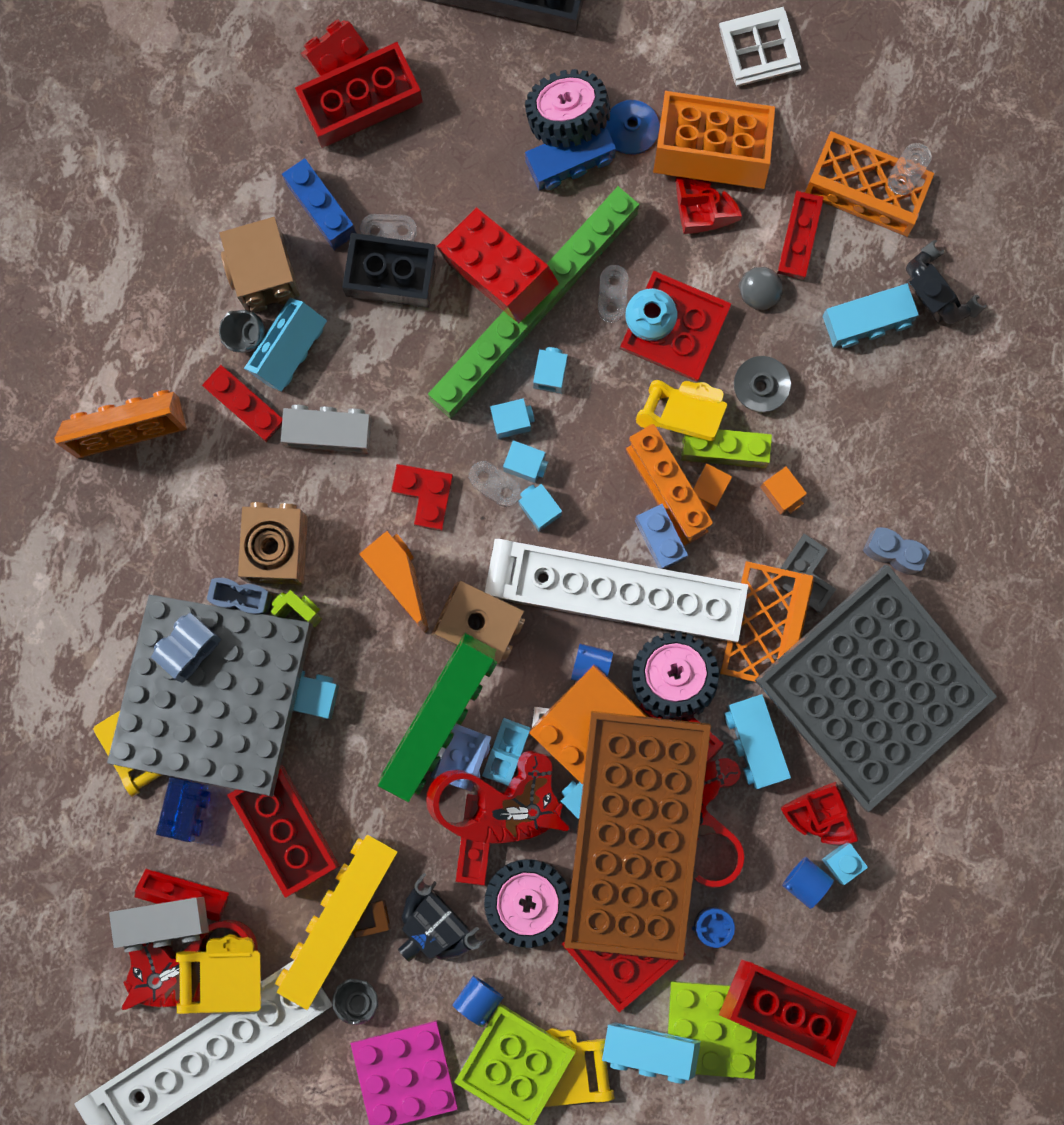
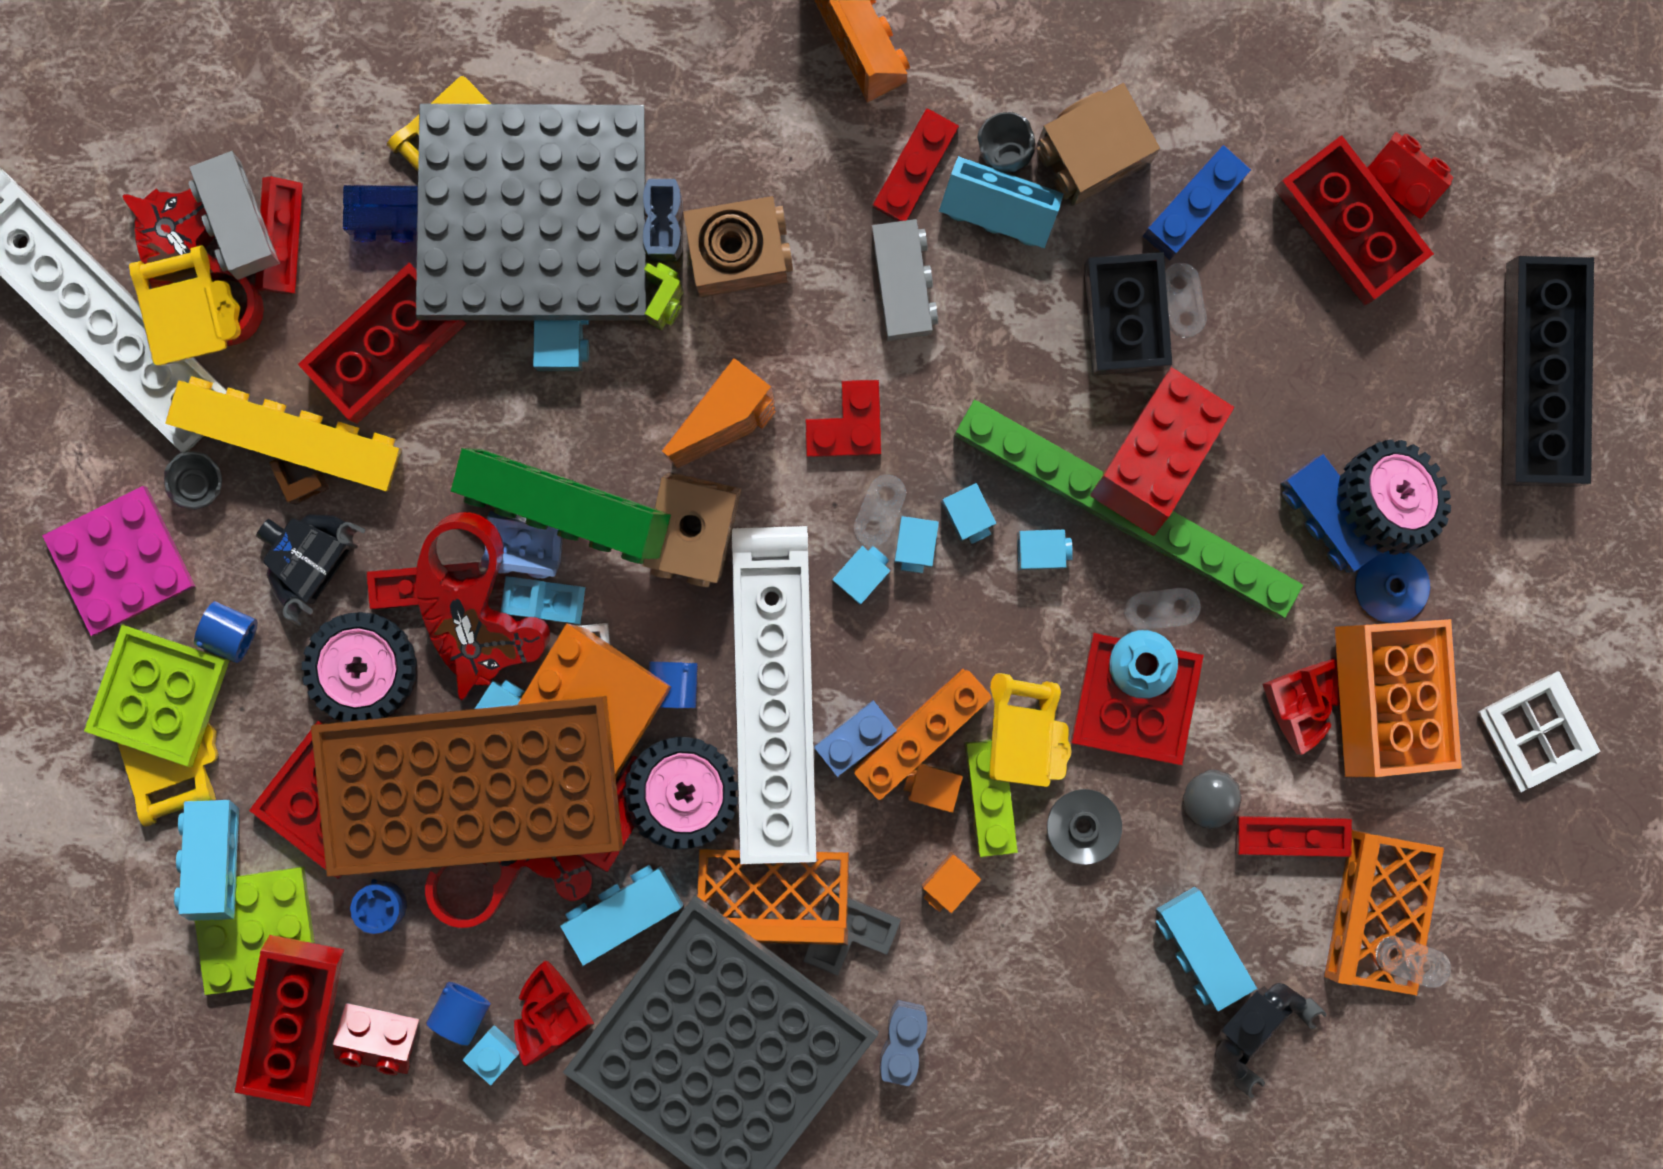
camera: 75 degrees right, 5 degrees up
(185, 647) = (581, 166): sand blue brick -> none
(815, 952) = (375, 1039): none -> bracket

